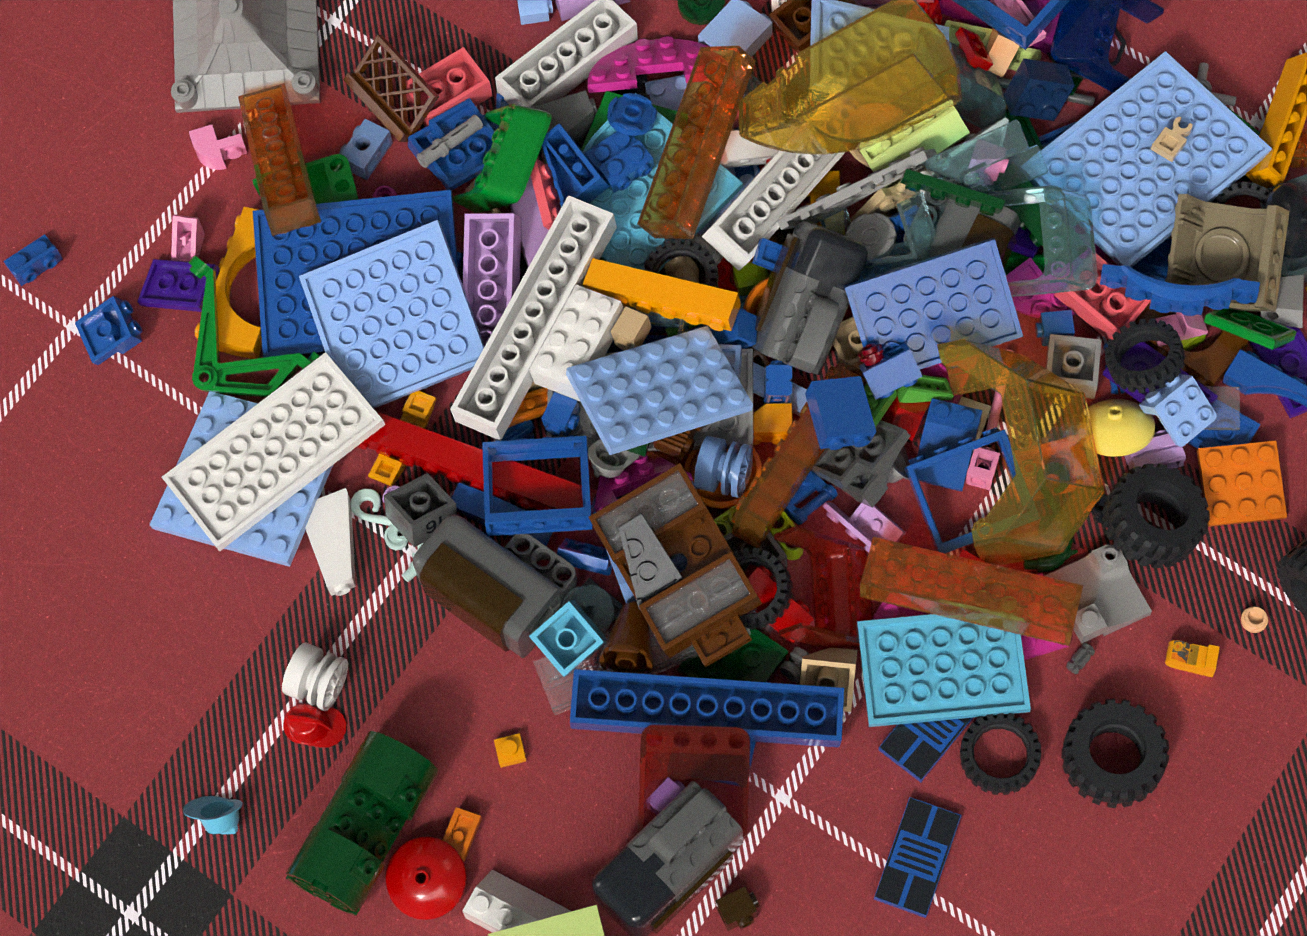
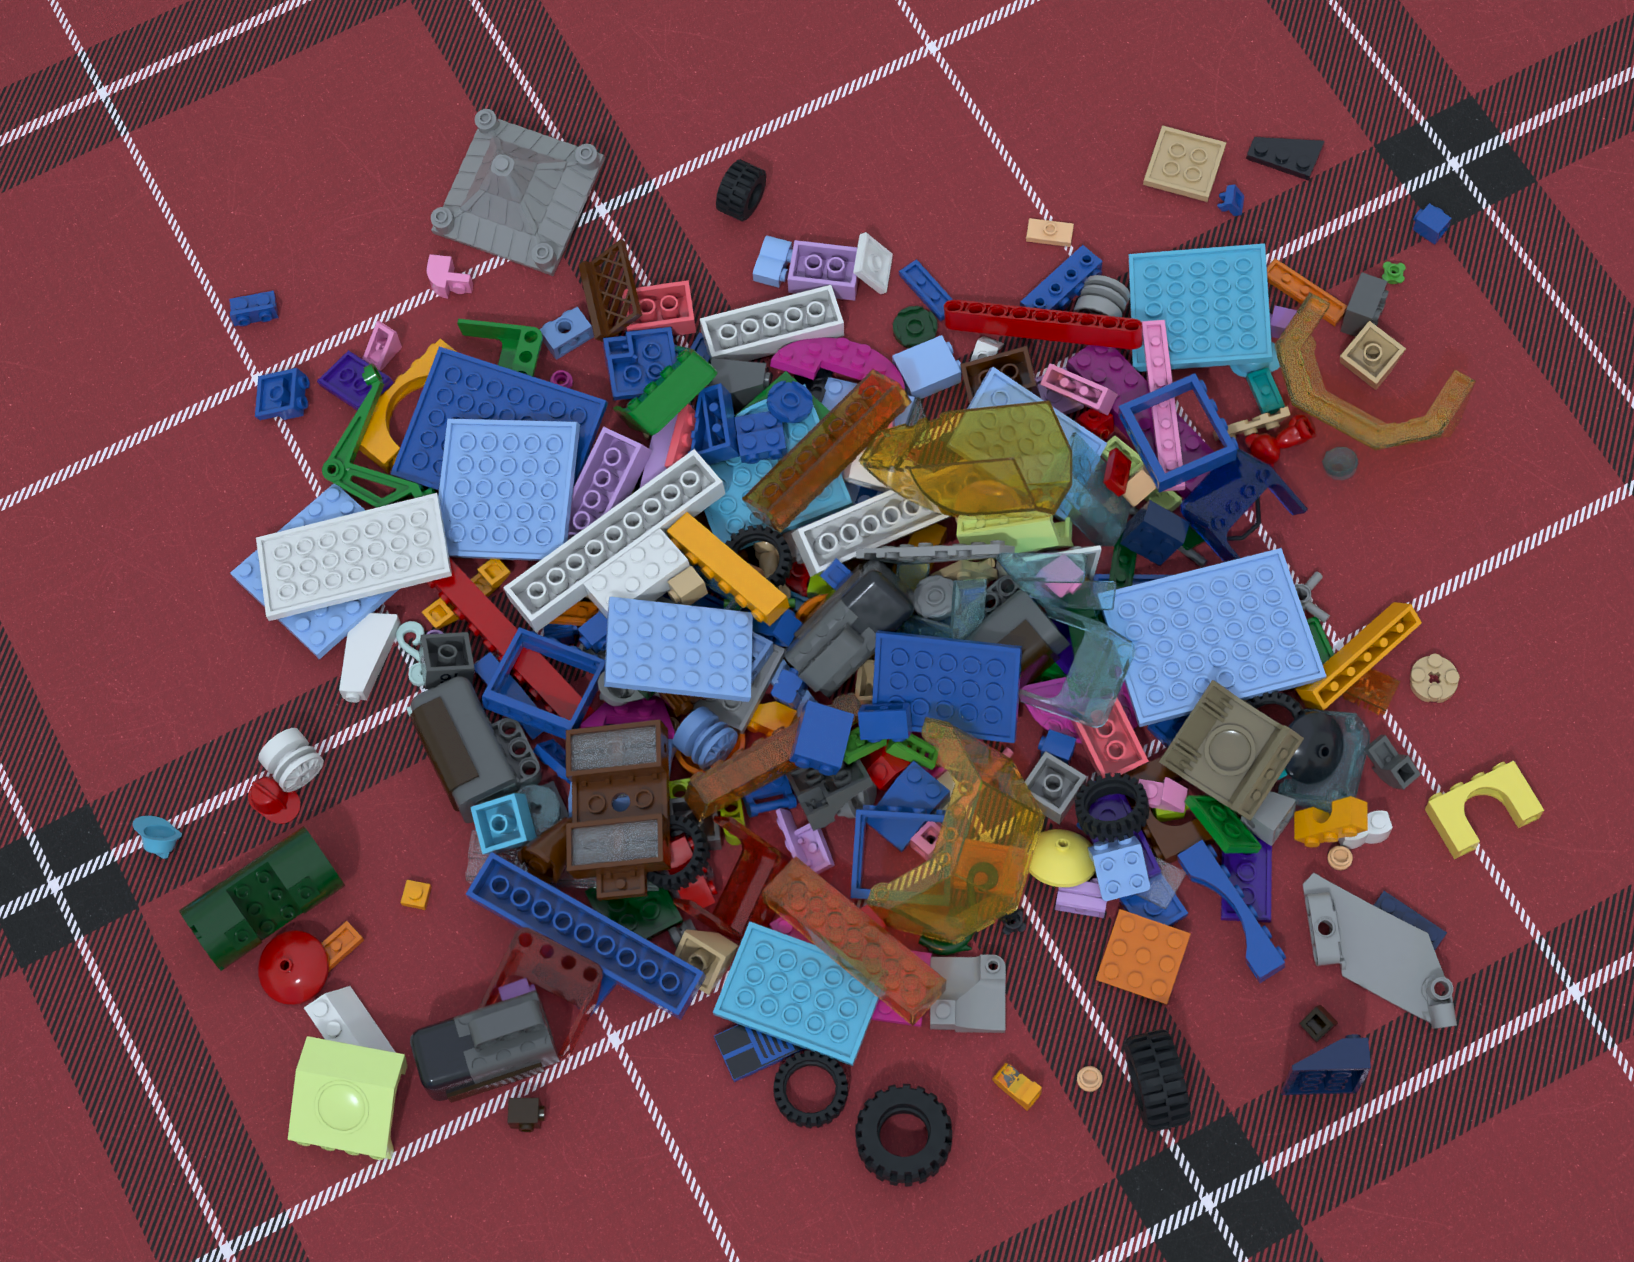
camera: 25 degrees right, 0 degrees up
(279, 160) = (482, 312): clear orange brick -> none
(442, 146) = (632, 357): light grey pin -> none
(647, 559) = (593, 788): wing -> none
(871, 354) = (874, 699): dark red plate -> none
(917, 857) = (696, 1143): black tile -> none
(963, 196) = (1015, 599): dark green plate -> none
(1080, 658) = (923, 1041): dark grey piece -> none
(1172, 141) = (1238, 631): tan plate -> none
(1173, 494) = (1073, 933): black tyre -> none
(1179, 298) = (1168, 774): blue piece -> none

